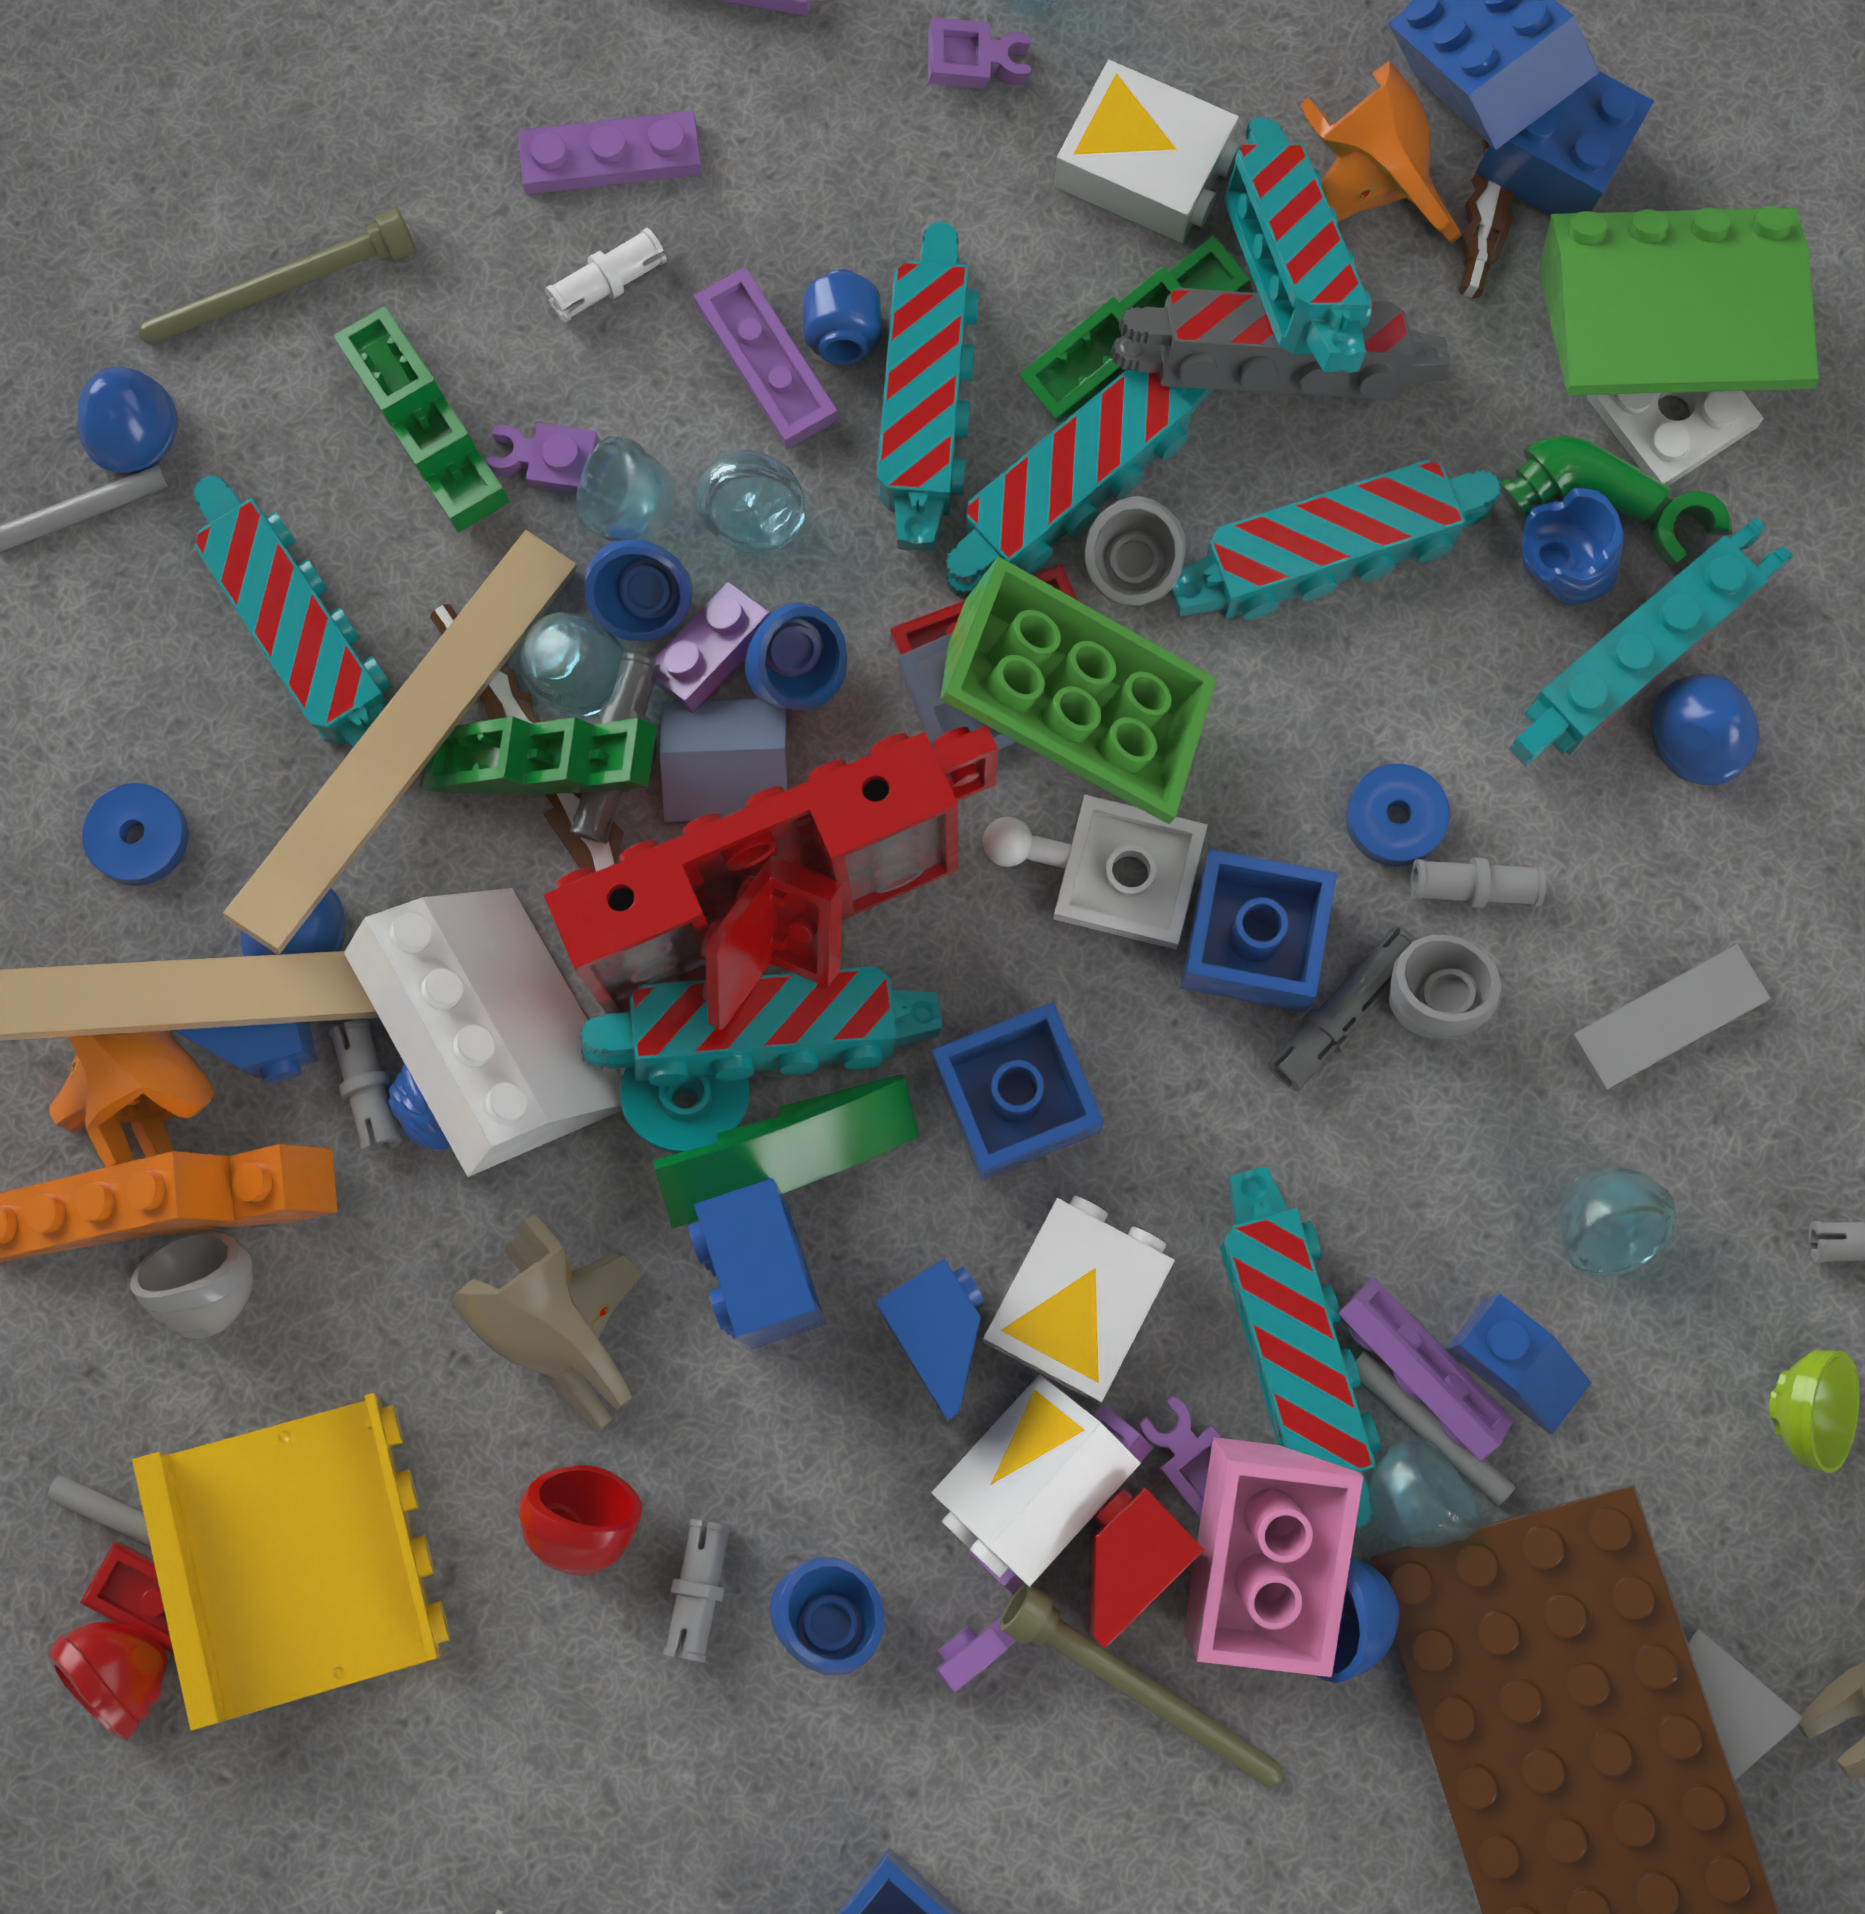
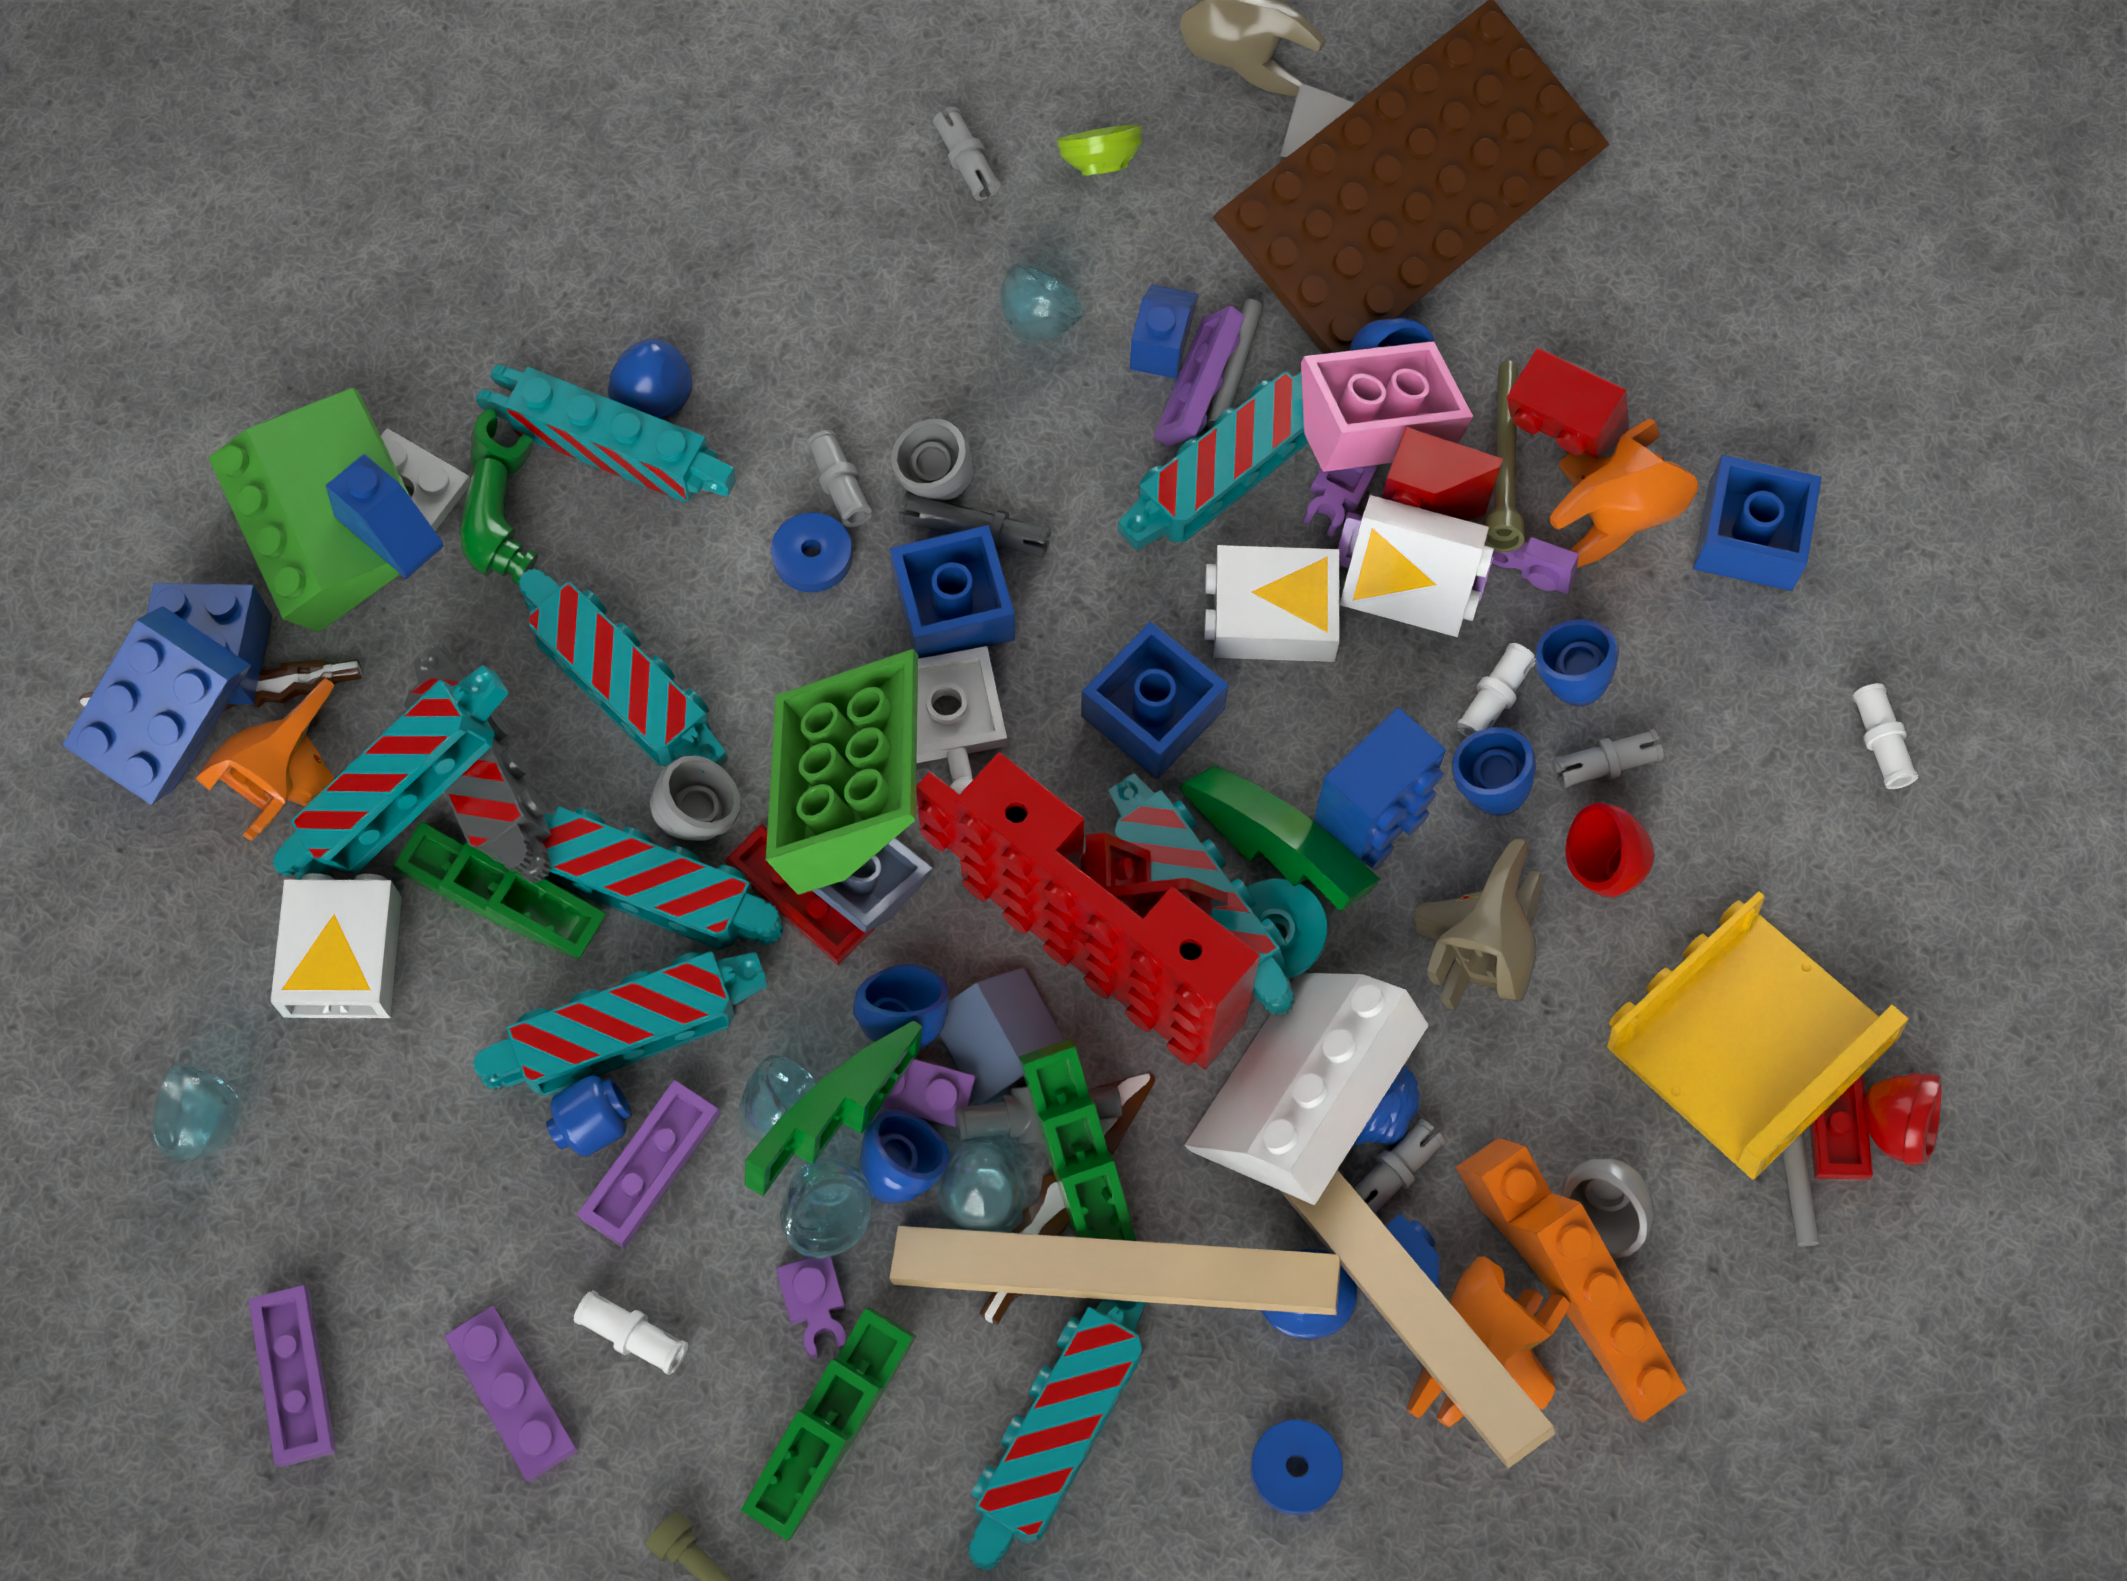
camera: 120 degrees left, 10 degrees down
(708, 544) = (844, 1096): none -> green slope
(741, 1436) = (1495, 770): none -> blue hat
(843, 1503) = (1497, 690): none -> white pin
(937, 1330) = (1352, 669): blue slope -> none
(966, 56) = (299, 1129): medium lavender plate -> none
(1019, 1799) = (1622, 493): none -> orange piece
(1153, 1790) = (1568, 405): none -> red slope
(1421, 1497) = (1286, 339): clear light blue hat -> none
(1574, 546) = (550, 508): blue hair -> none
(1618, 335) = (382, 516): none -> blue slope
(1669, 1018) = (875, 329): light grey tile -> none

